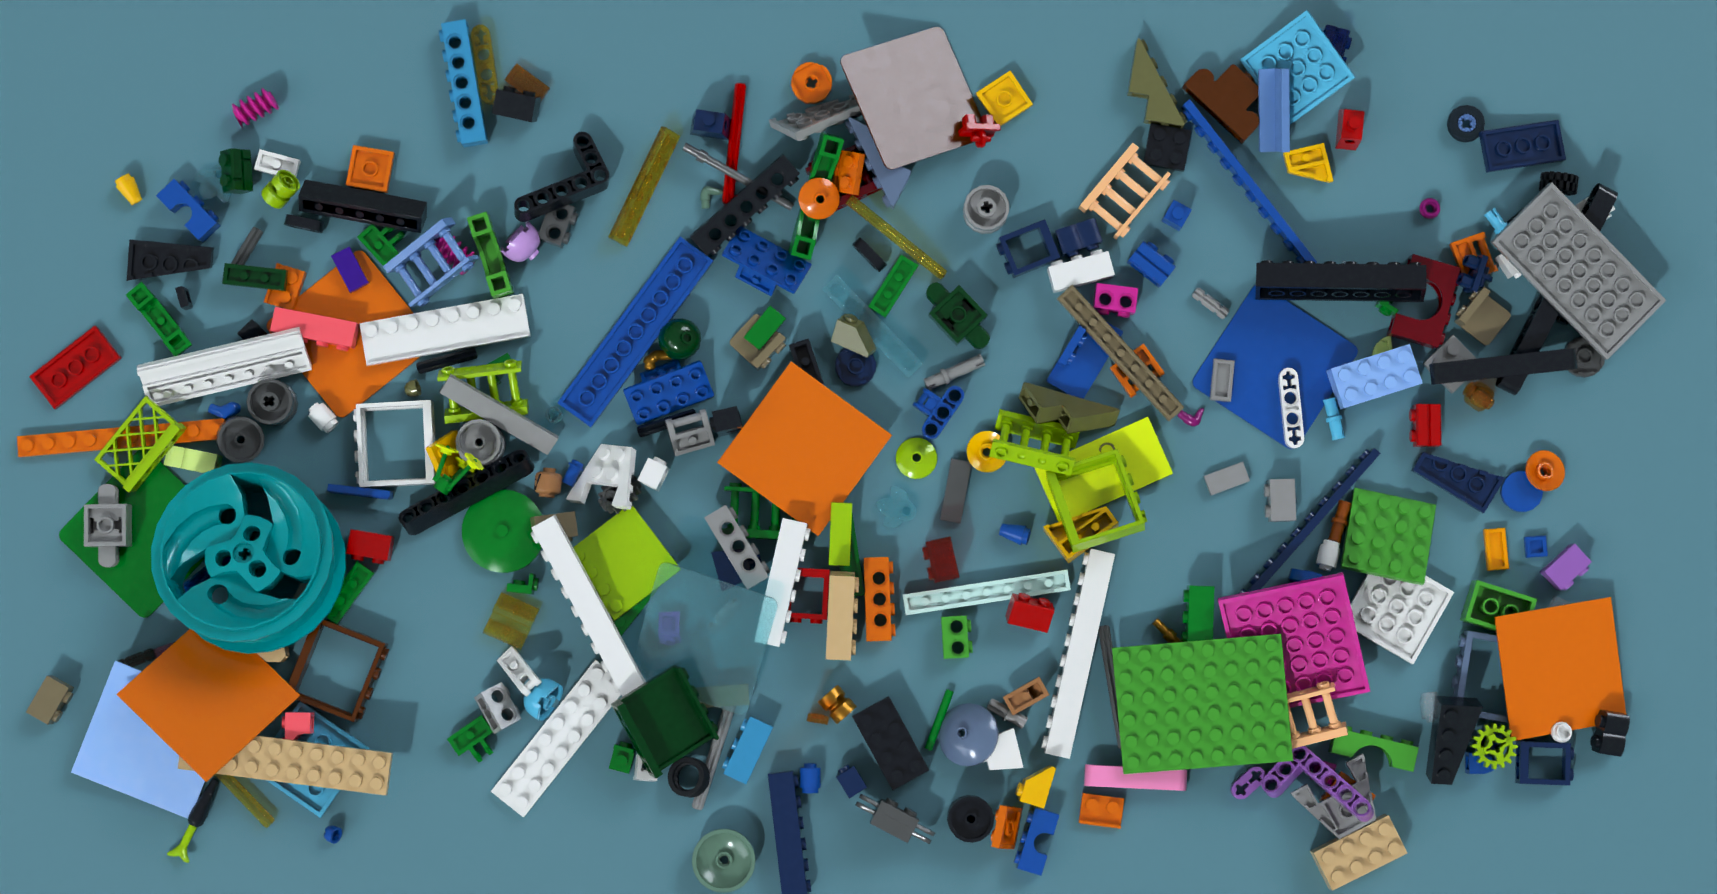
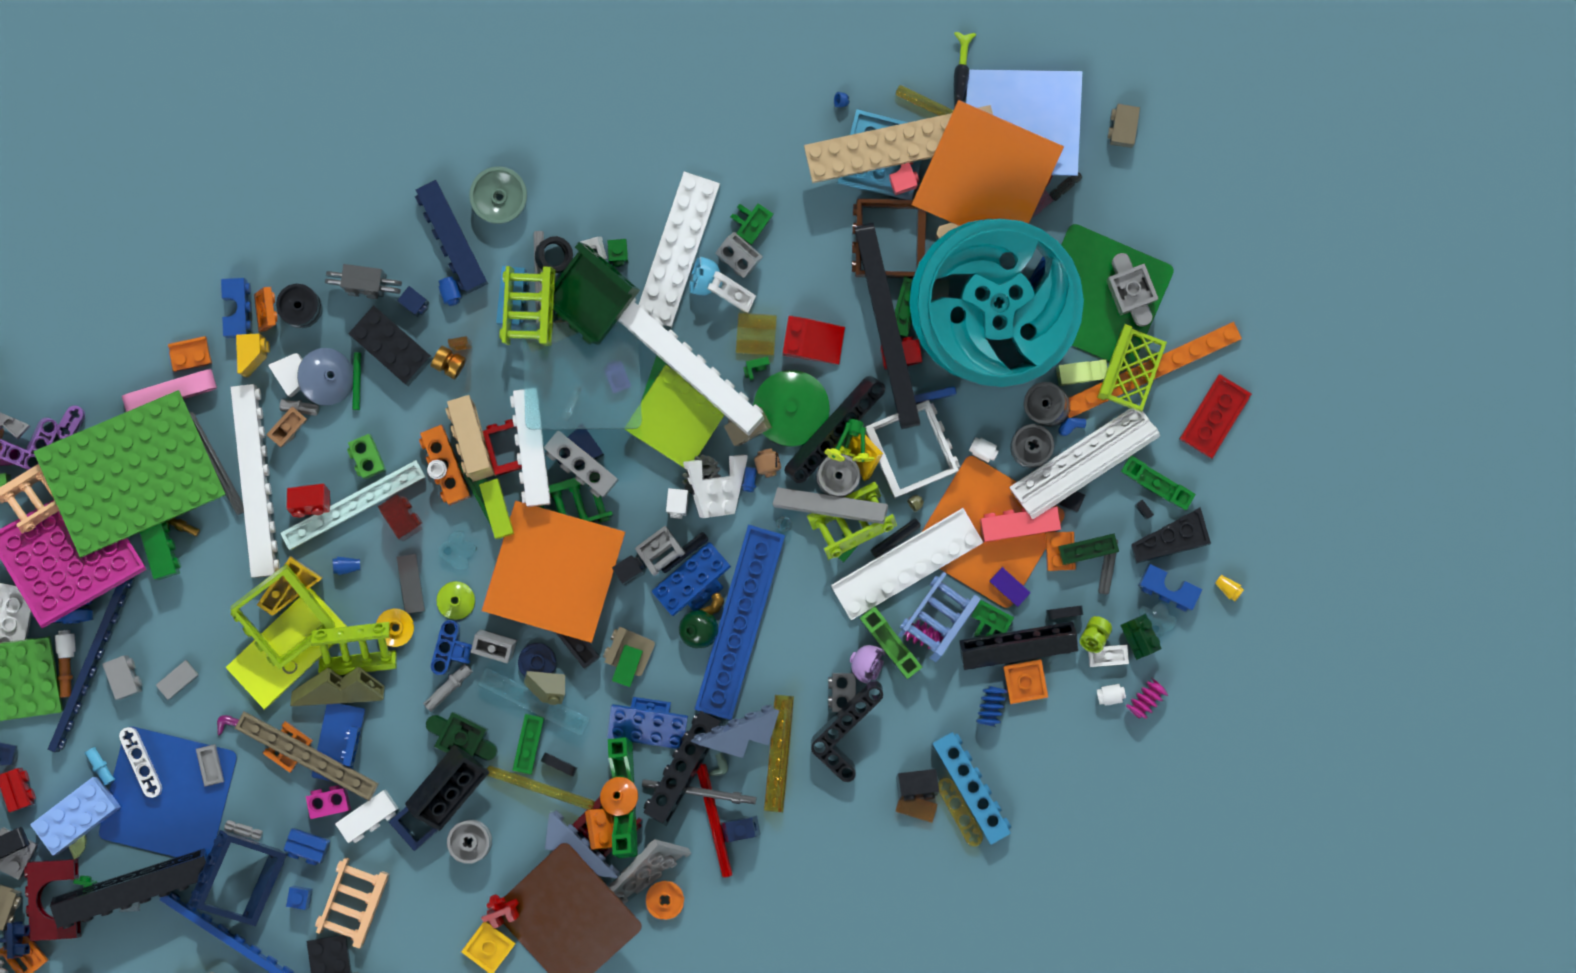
camera: 160 degrees right, 0 degrees up
(289, 125) = (1111, 694): none -> white brick
(371, 577) = (887, 326): none -> black beam
(412, 156) = (991, 706): none -> blue piece
(455, 592) = (813, 340): none -> red slope
(680, 217) = (735, 735): none -> sand blue slope
(711, 732) = (544, 316): none -> lime fence
(886, 595) = (437, 469): none -> white plate
(892, 395) = (493, 646): none -> light grey brick
(989, 267) = (446, 788): none -> black slope
(1078, 237) = (379, 847): dark blue brick -> none
(1210, 238) = (262, 888): none -> dark blue window

